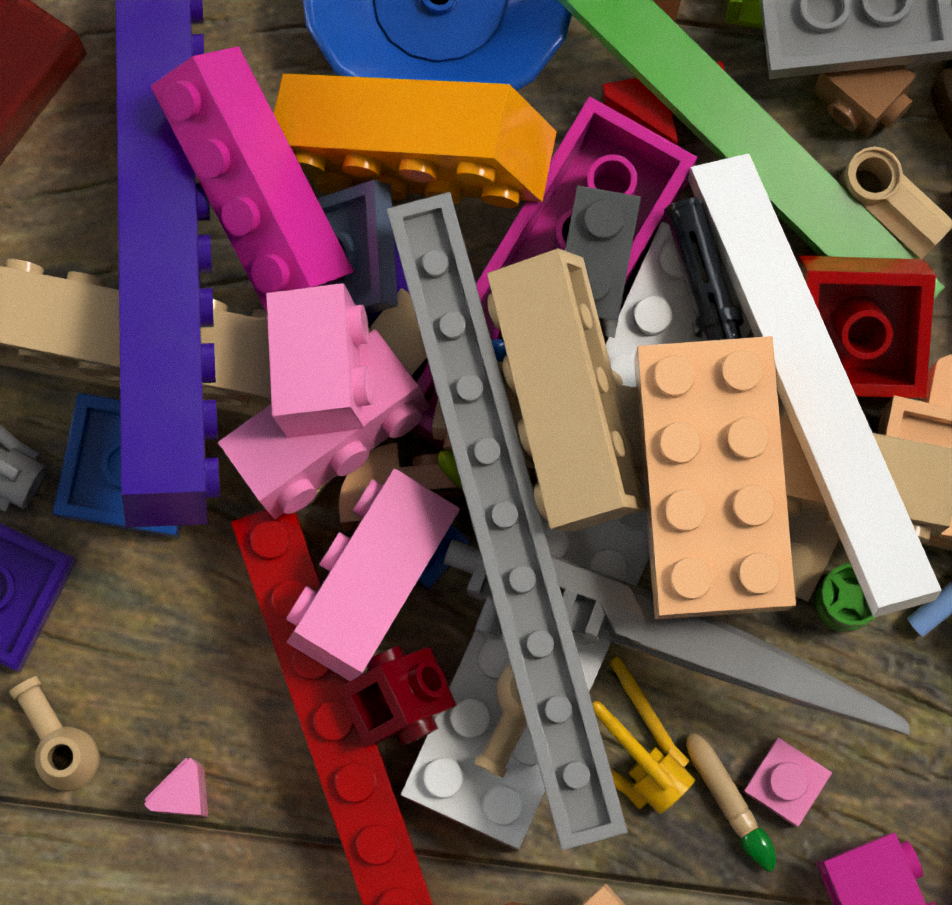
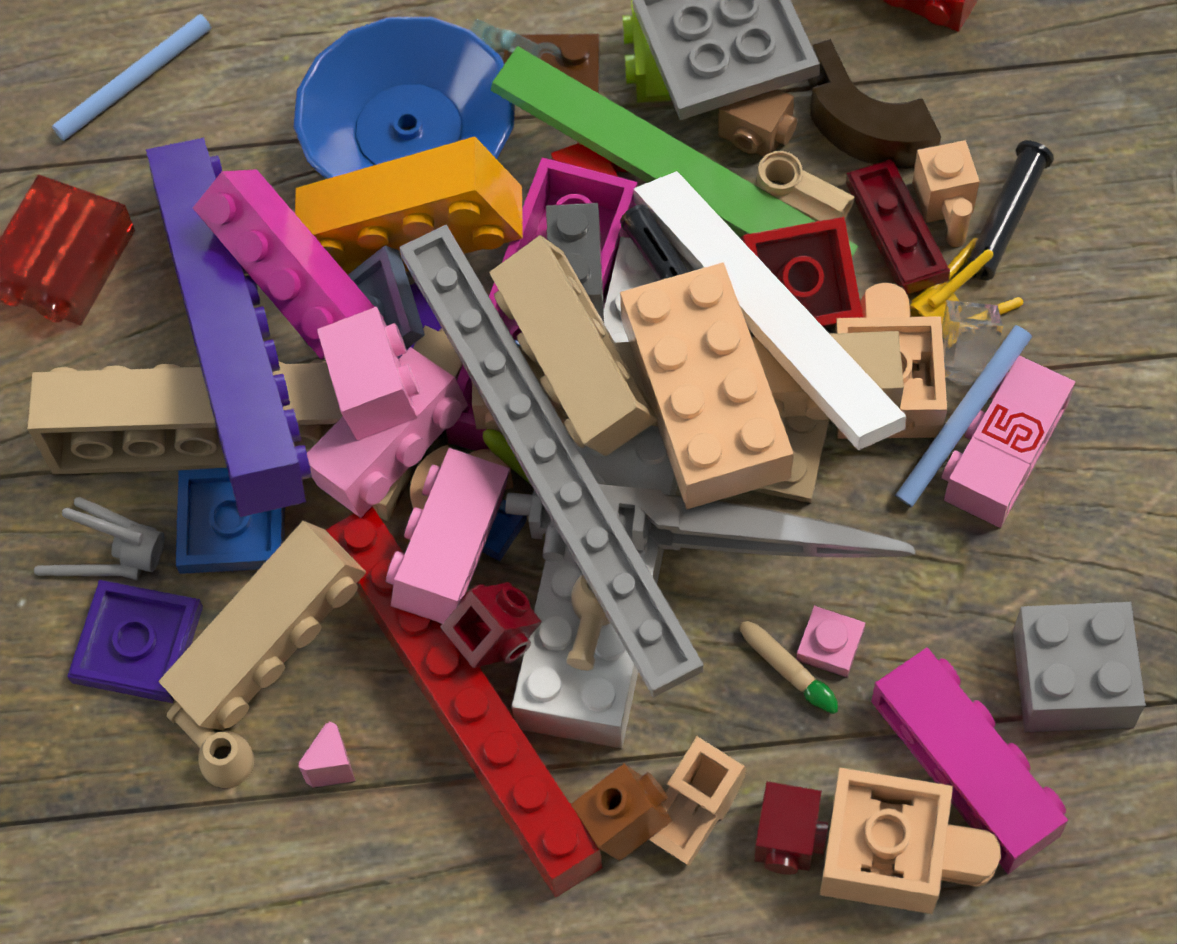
camera: 10 degrees left, 15 degrees down
(137, 625) = (263, 627): none -> tan brick
(658, 776) = (723, 654): yellow plant -> none
(849, 597) = (843, 474): bright green wheel -> none

